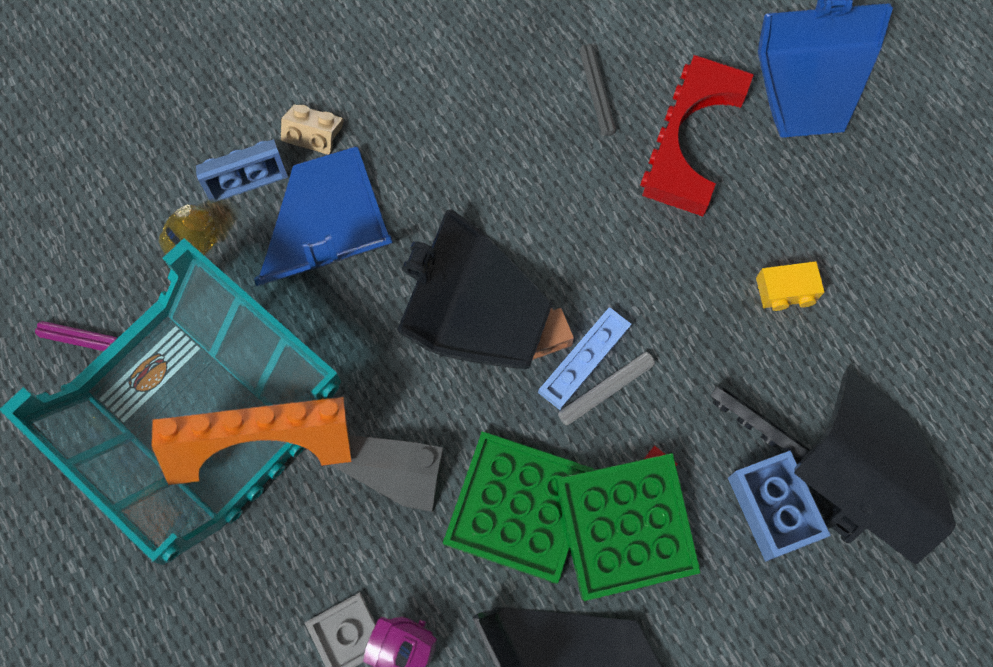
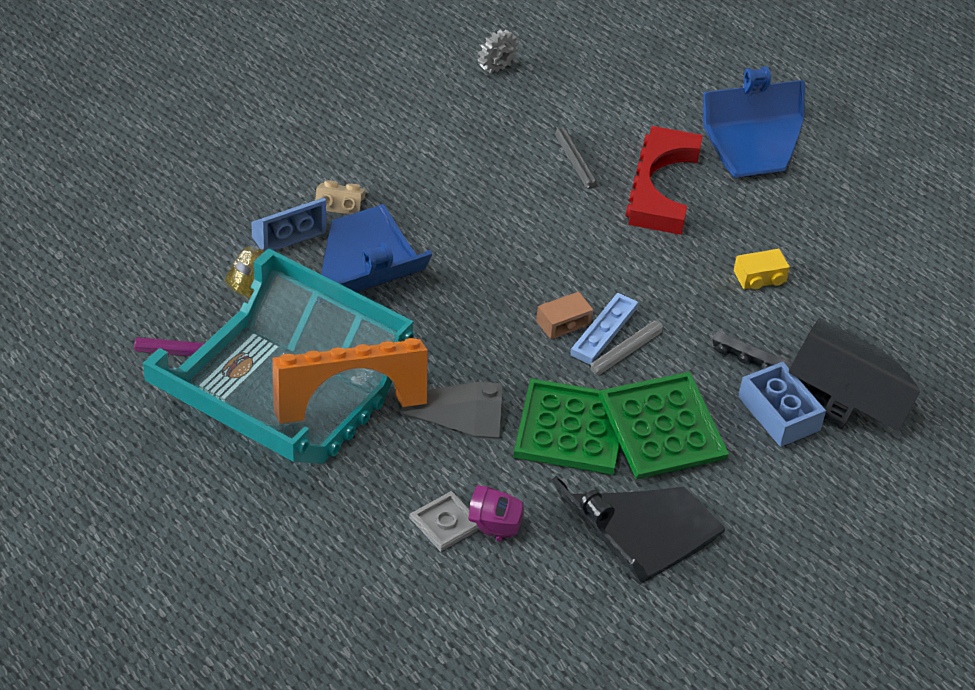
camera: 10 degrees left, 25 degrees down
(472, 299) = (501, 296): black panel -> none

